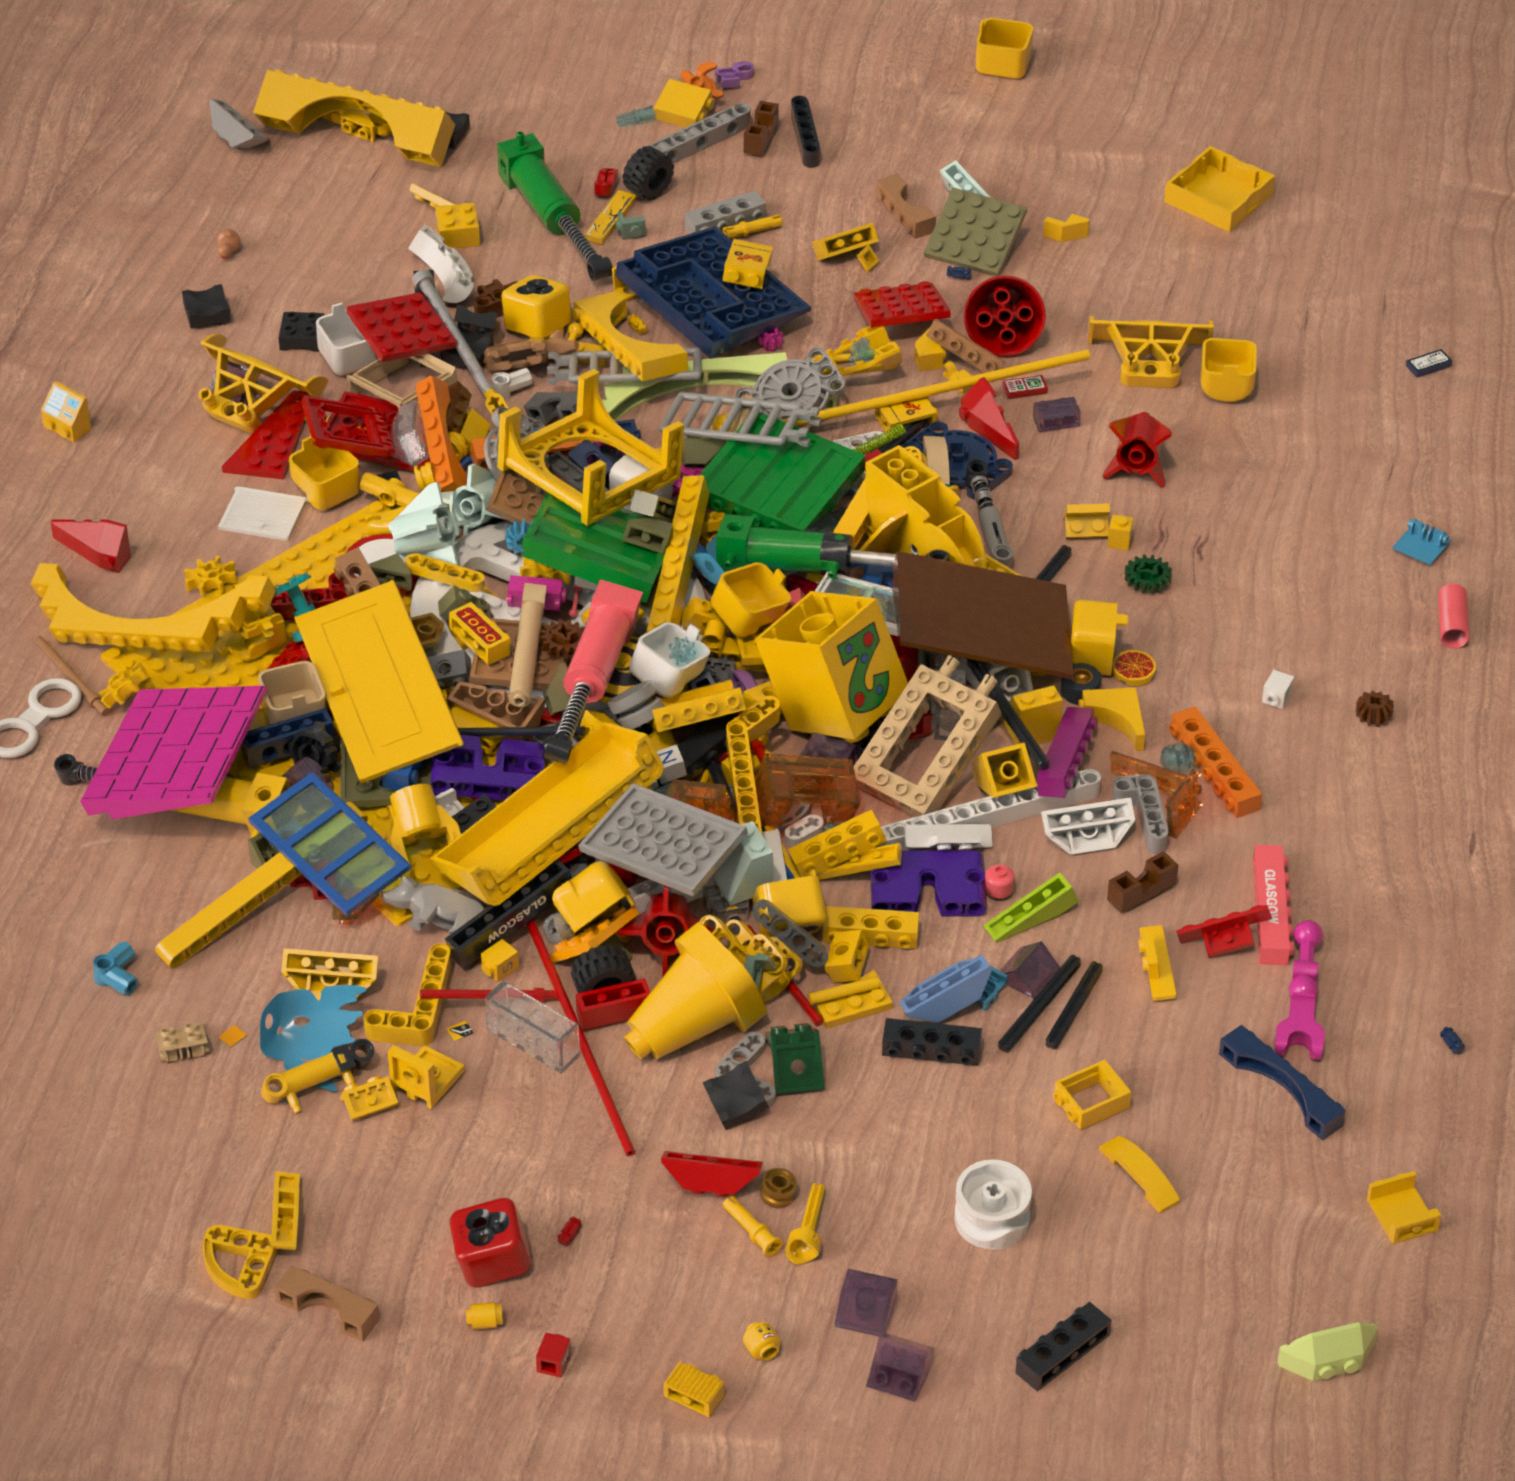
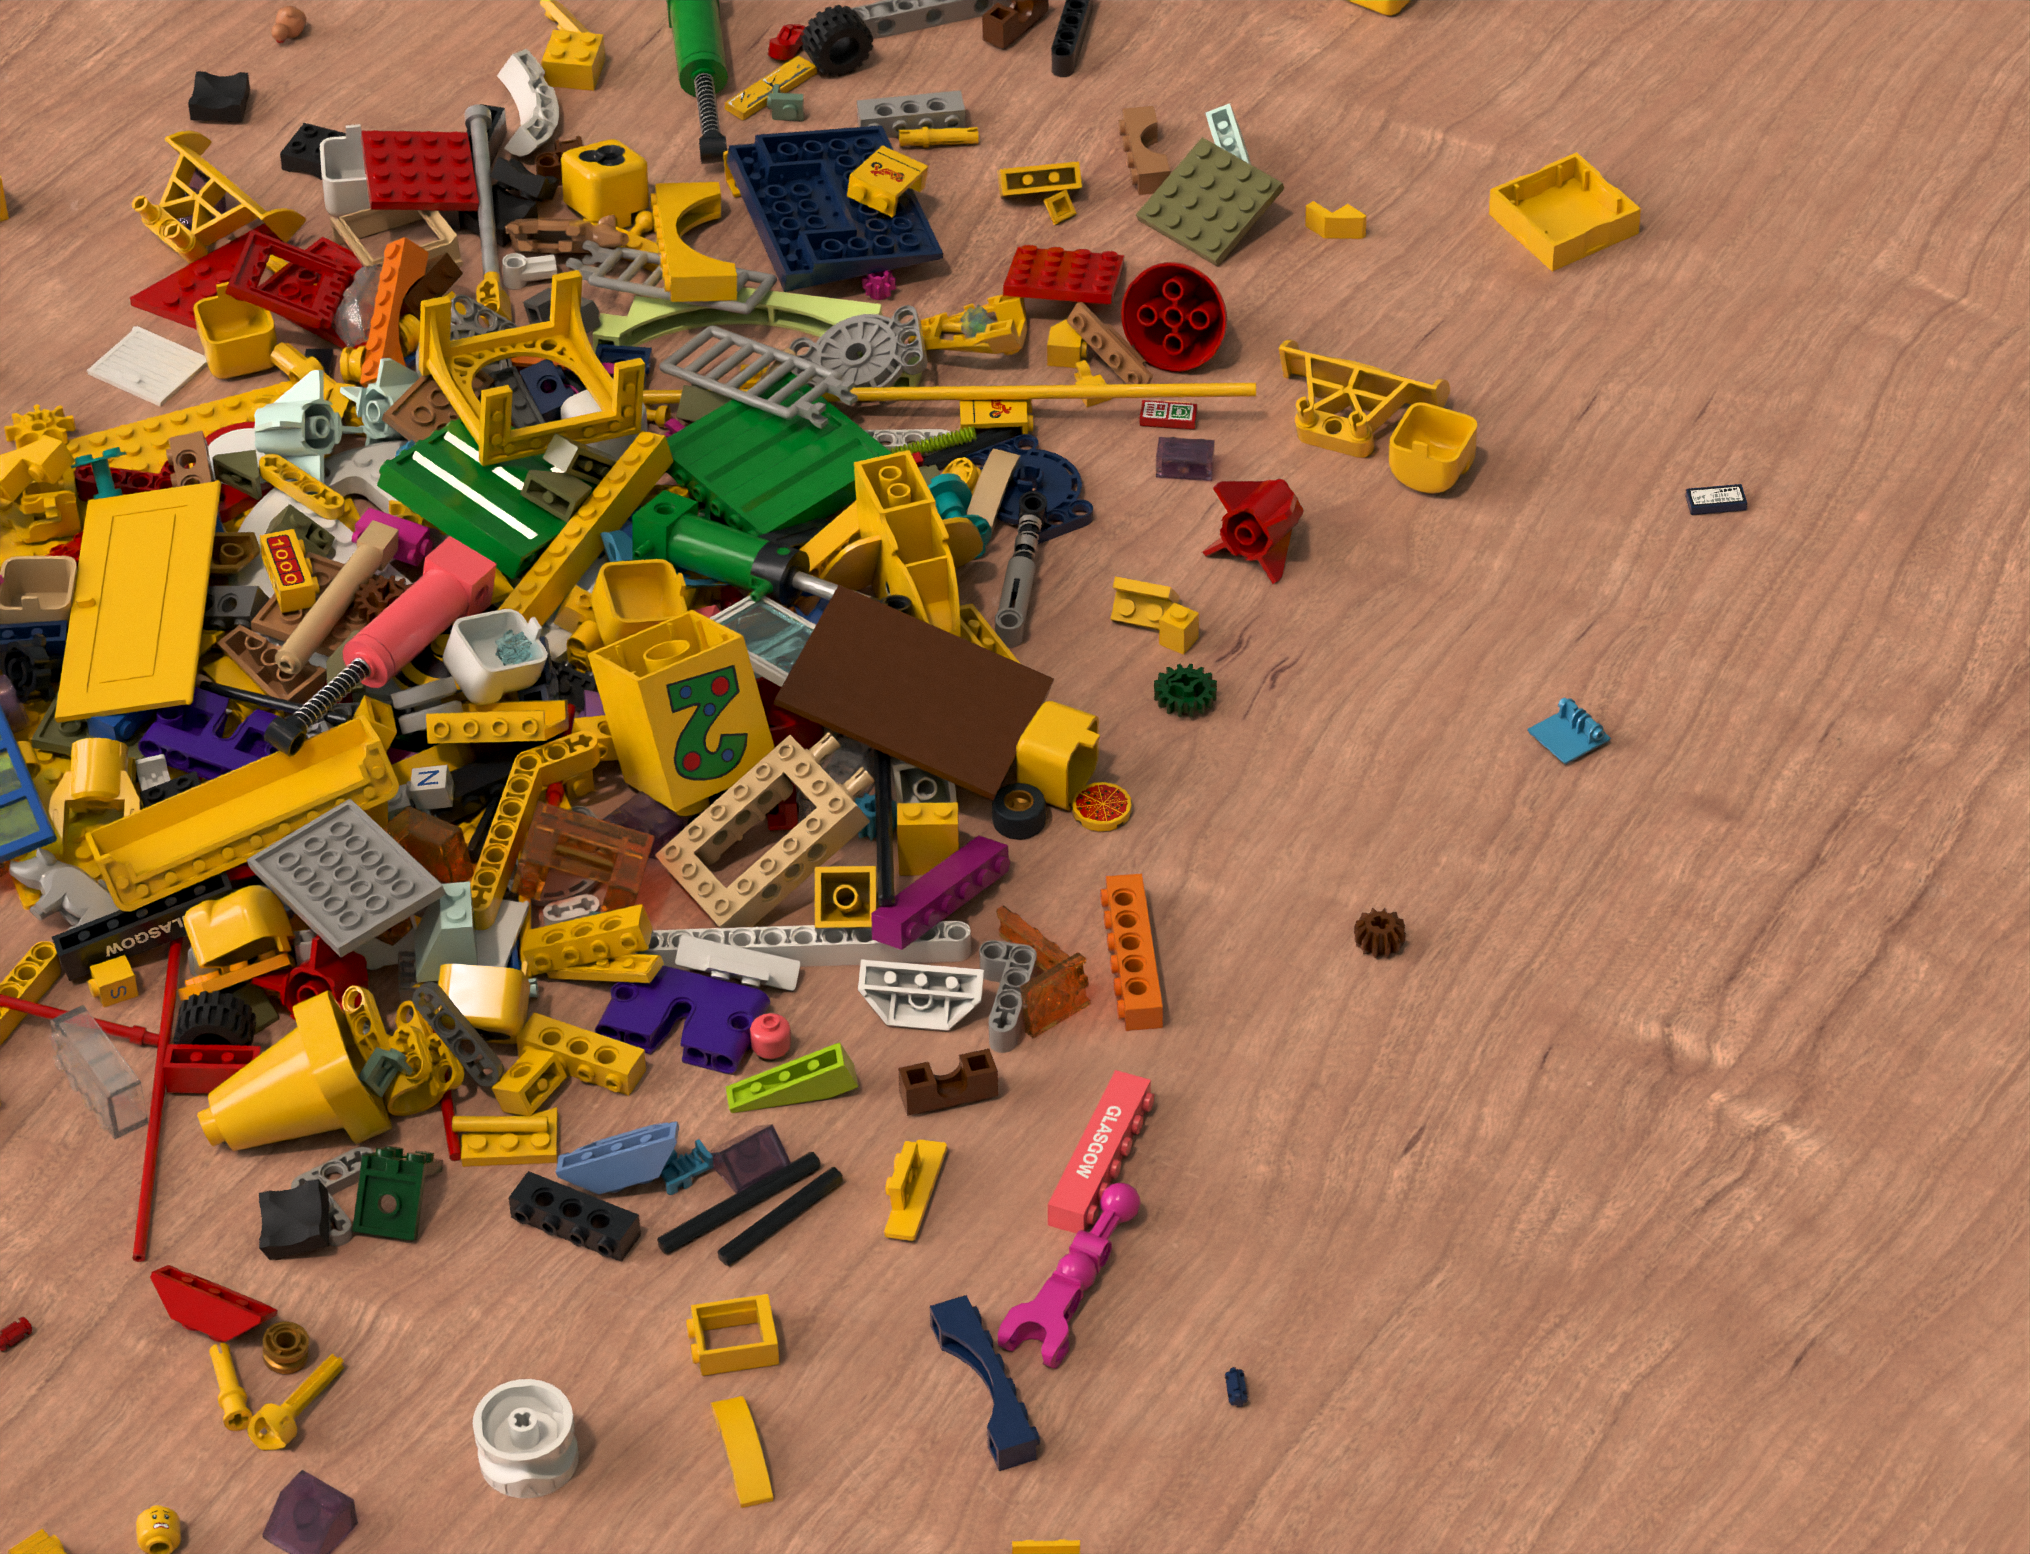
camera: 20 degrees right, 0 degrees up
(459, 1030) = (25, 1055): sticker -> none
(637, 324) = (727, 229): yellow piece -> none
(958, 272) = (1166, 249): dark blue piece -> none
(987, 418) = (1088, 442): red wedge -> none
(1055, 563) = (1072, 652): black axle -> none
(1119, 710) = (1046, 854): yellow arch -> none
(1177, 757) = (1084, 934): clear light blue head -> none
(1226, 933) = (1017, 1173): red bracket -> none
(1277, 689) = (1267, 878): white brick -> none
(1453, 615) = (1551, 837): coral piece -> none

